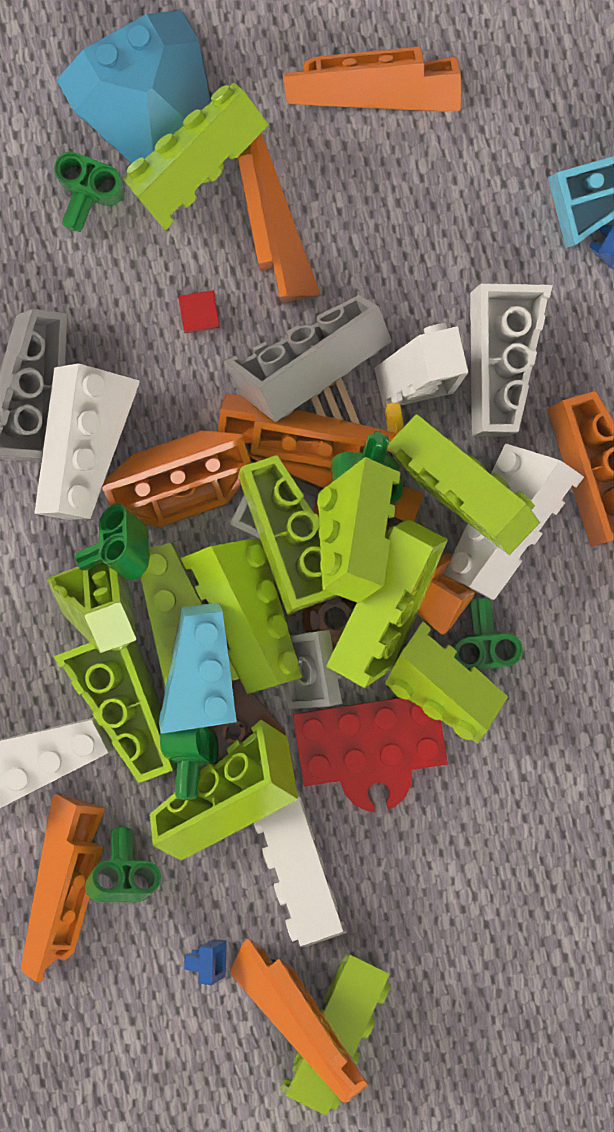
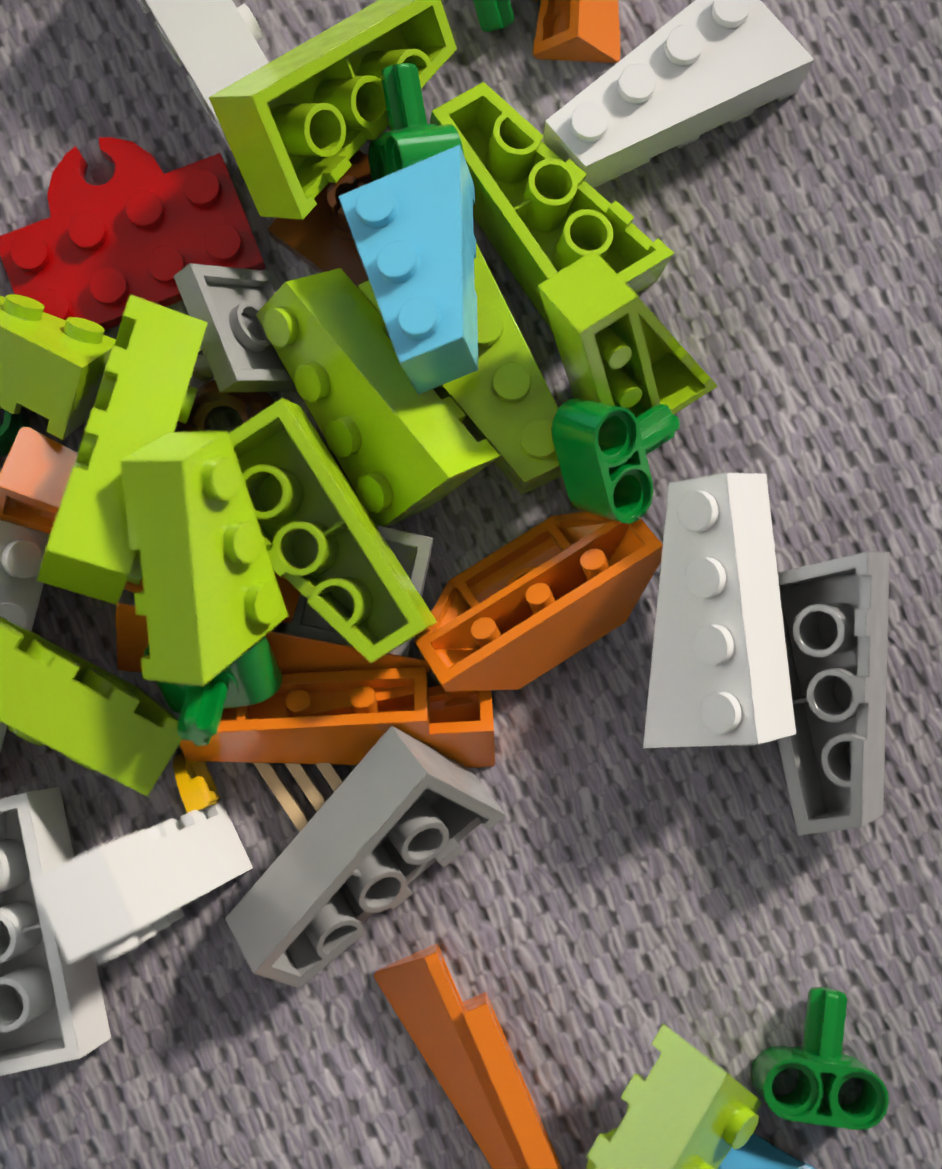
camera: 165 degrees right, 5 degrees down
(198, 311) = (572, 895): red tile -> none

